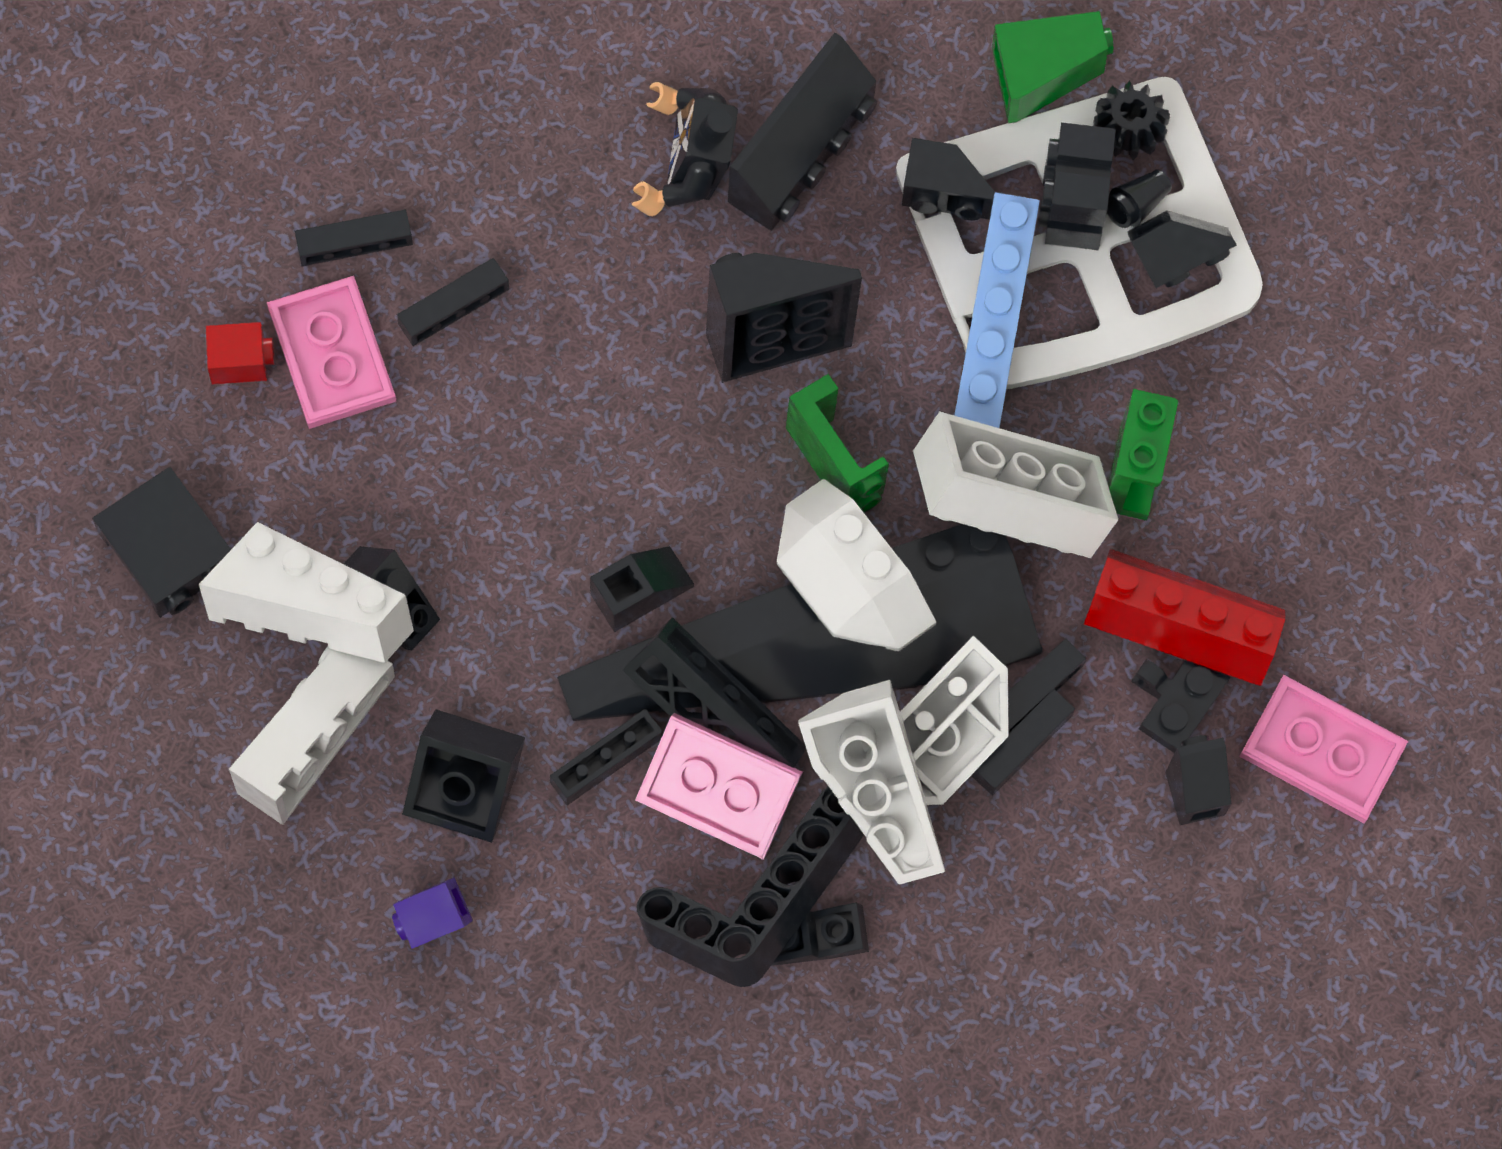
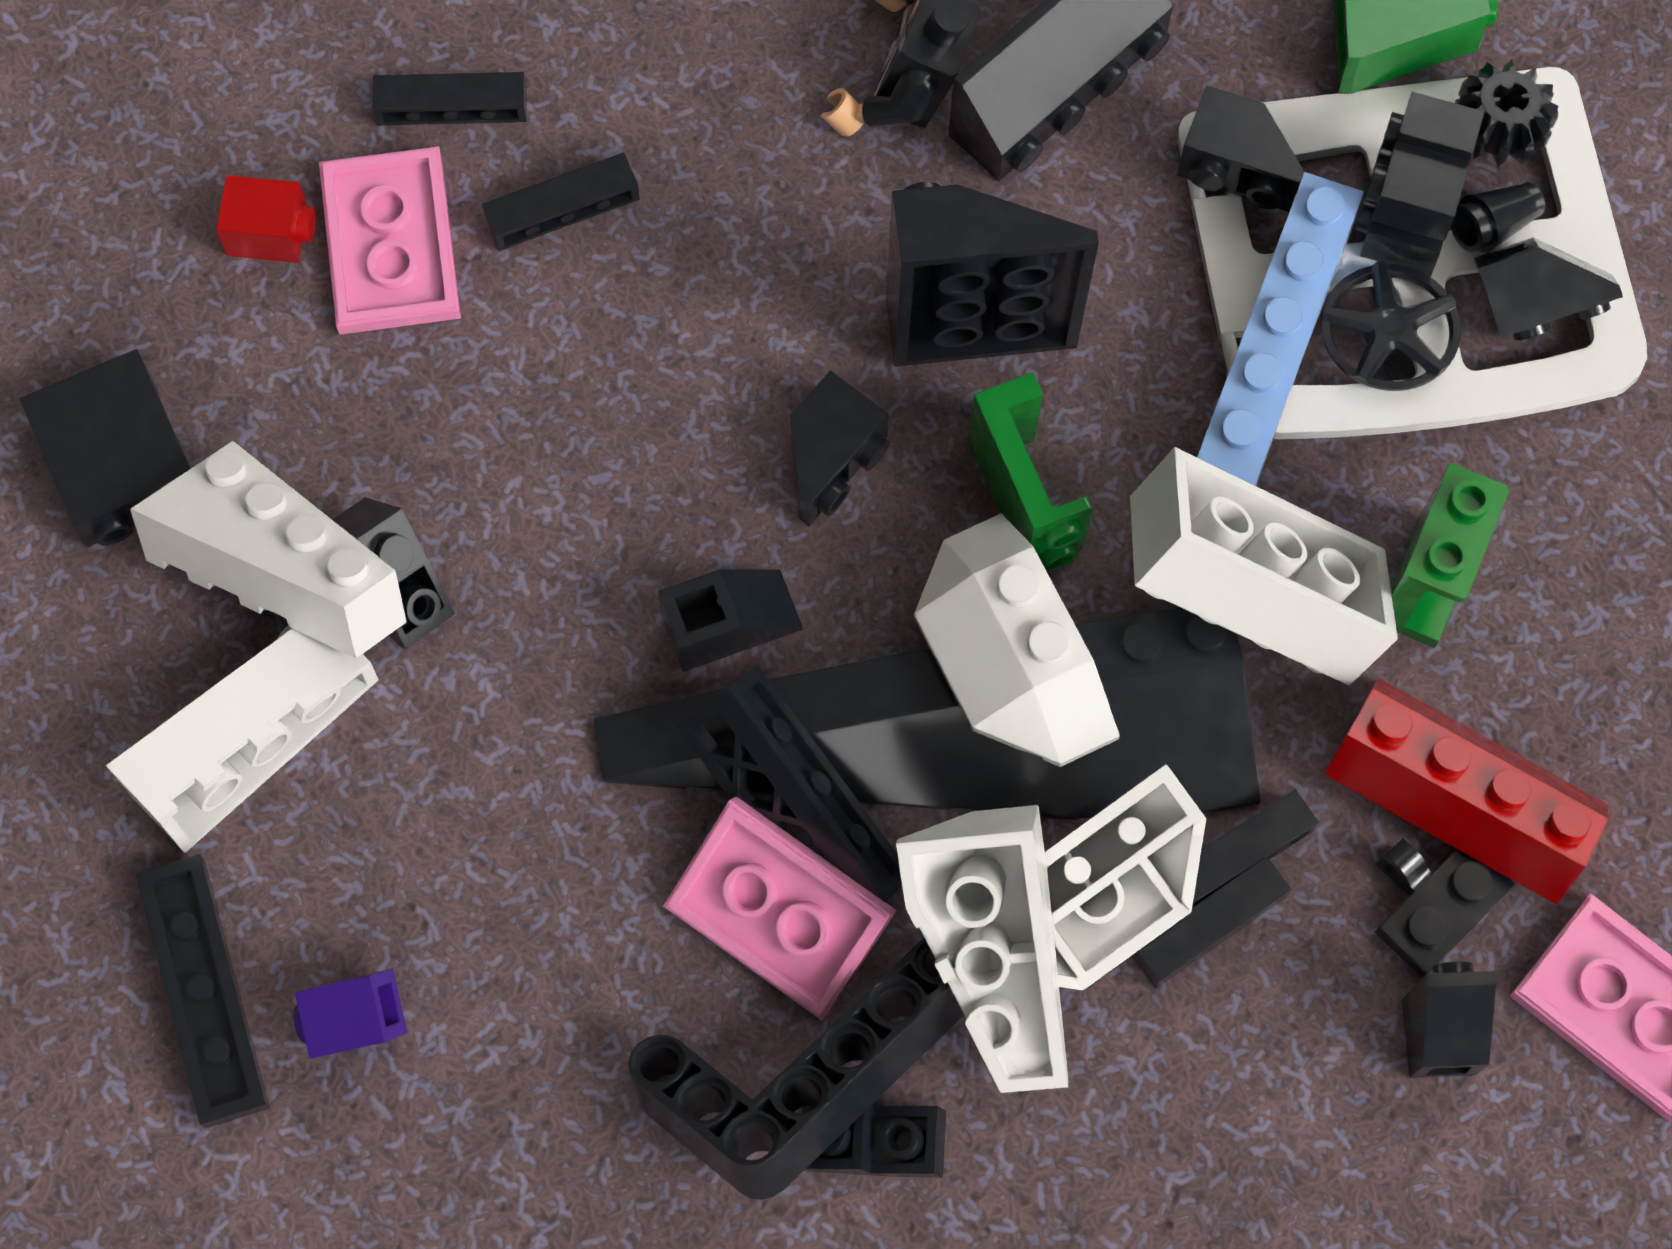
camera: 15 degrees right, 0 degrees up
(321, 917) = (202, 991): none -> black plate
(462, 775) = (435, 829): black slope -> none
(606, 757) = (635, 839): black piece -> none
(687, 446) = (831, 439): none -> black slope
(1075, 292) = (1390, 326): none -> black wheel

